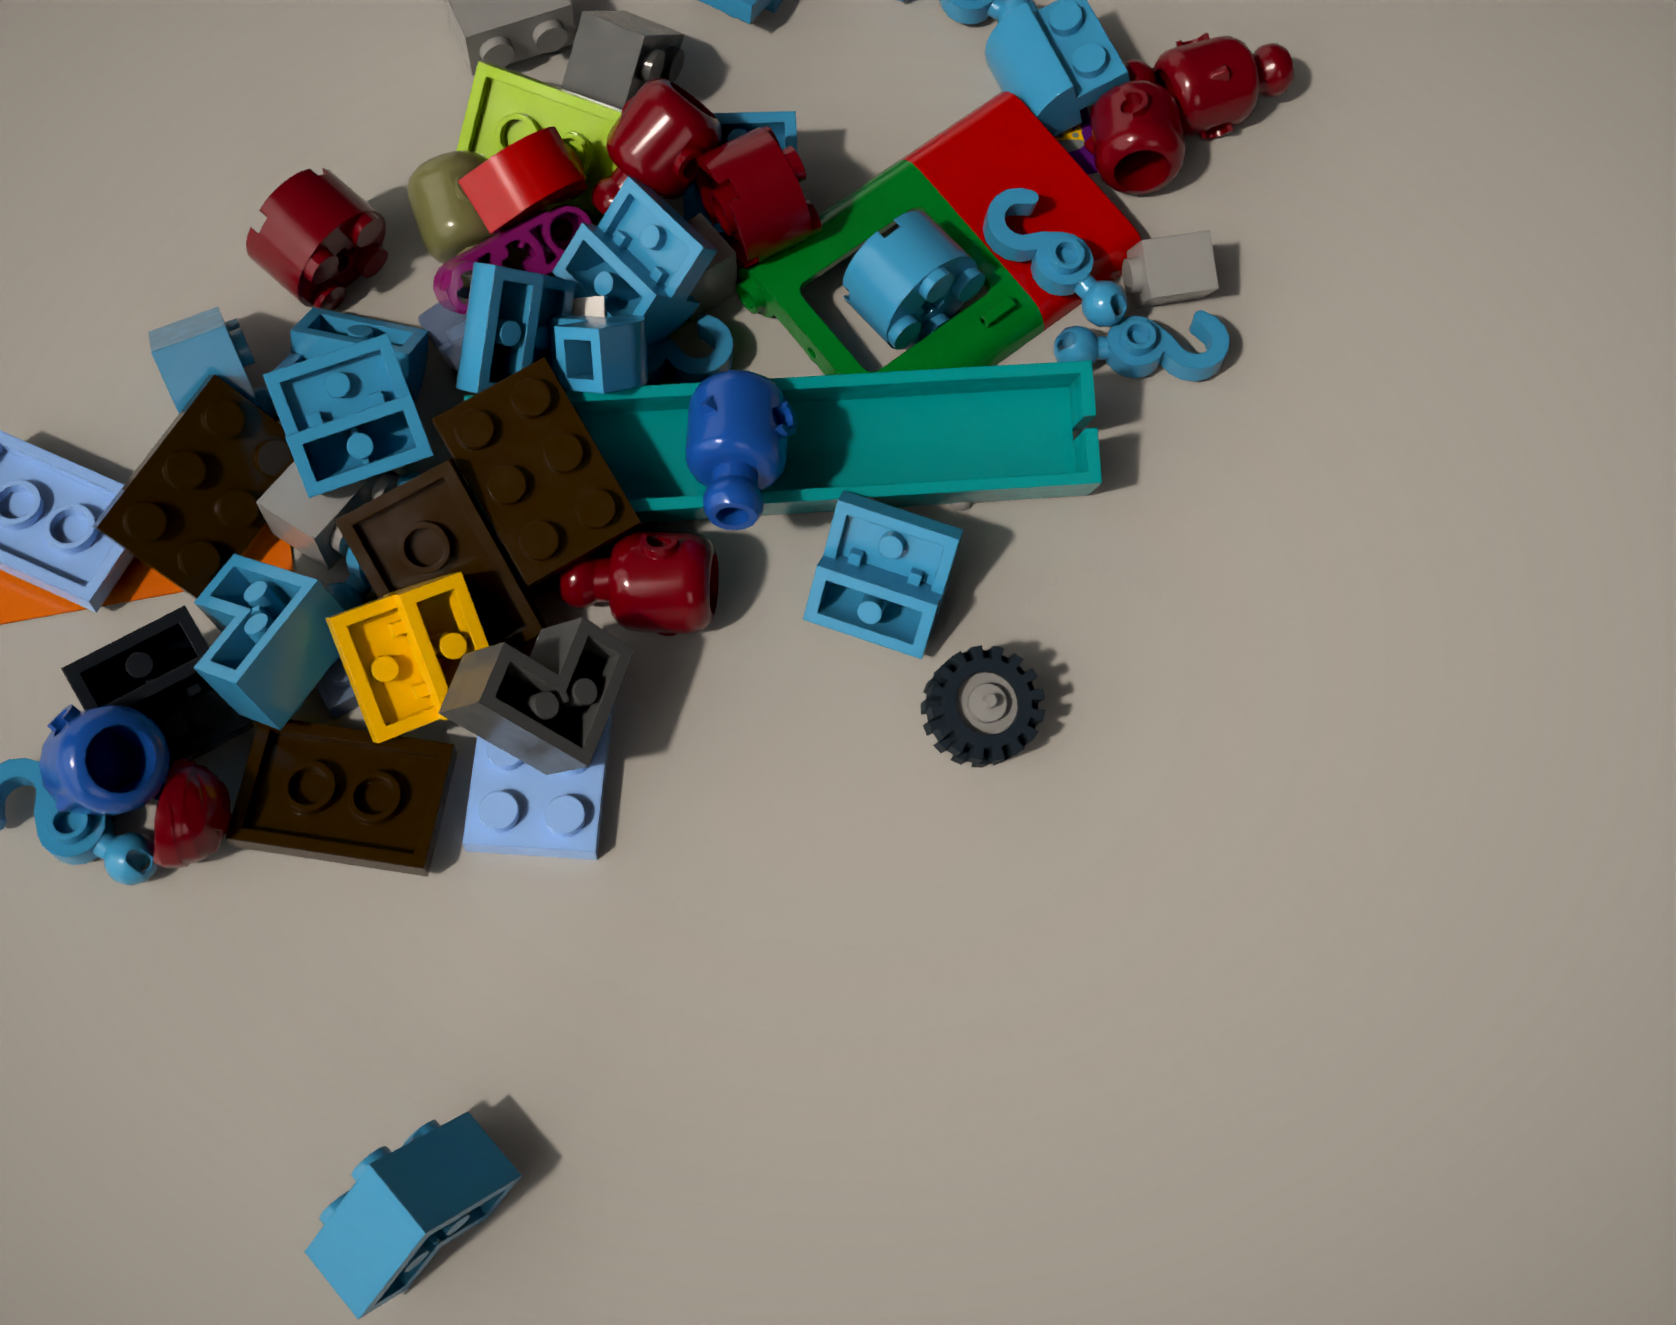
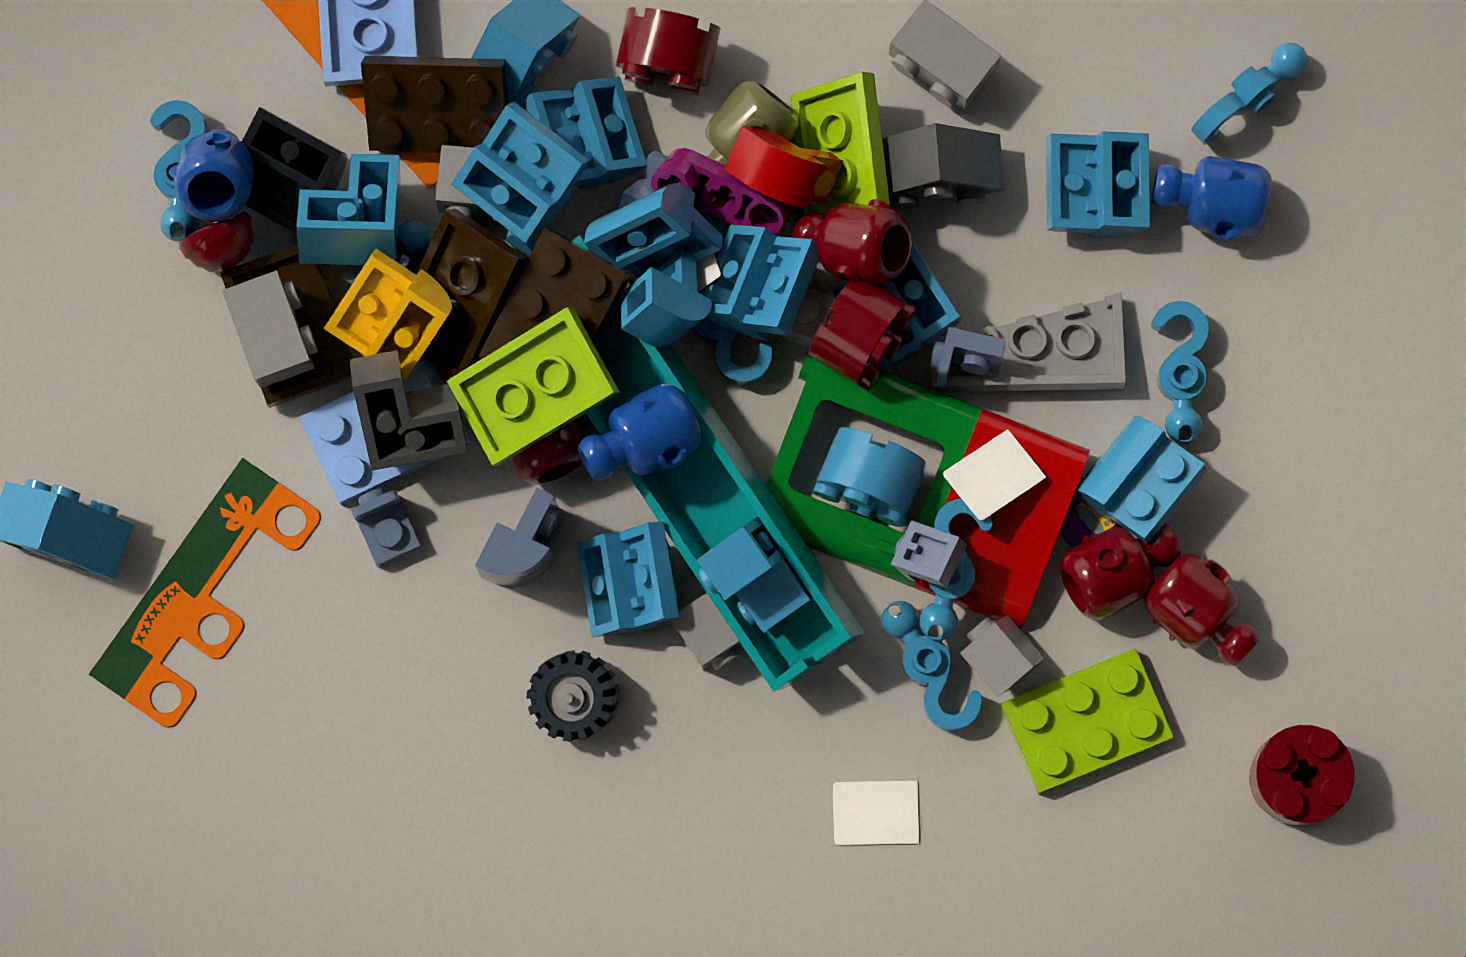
camera: 70 degrees right, 15 degrees up
(335, 799) = (269, 328): none -> light grey brick
(587, 1110) = (182, 589): none -> piece
(607, 523) = (533, 386): none -> lime plate
(655, 816) = (385, 526): none -> sand blue bracket
(777, 655) = (518, 555): none -> sand blue brick
(835, 130) = (970, 350): none -> sand blue bracket
(873, 86) = (1053, 352): none -> light grey wing
(959, 423) = (755, 571): none -> dark azure brick
(981, 168) = (993, 475): none -> white sticker
(993, 533) = (706, 634): none -> light grey brick
(1035, 256) = (928, 554): none -> sand blue bracket
(1271, 484) = (876, 812): none -> white sticker
(1275, 245) = (1086, 721): none -> lime plate
(1434, 82) = (1316, 751): none -> dark red brick

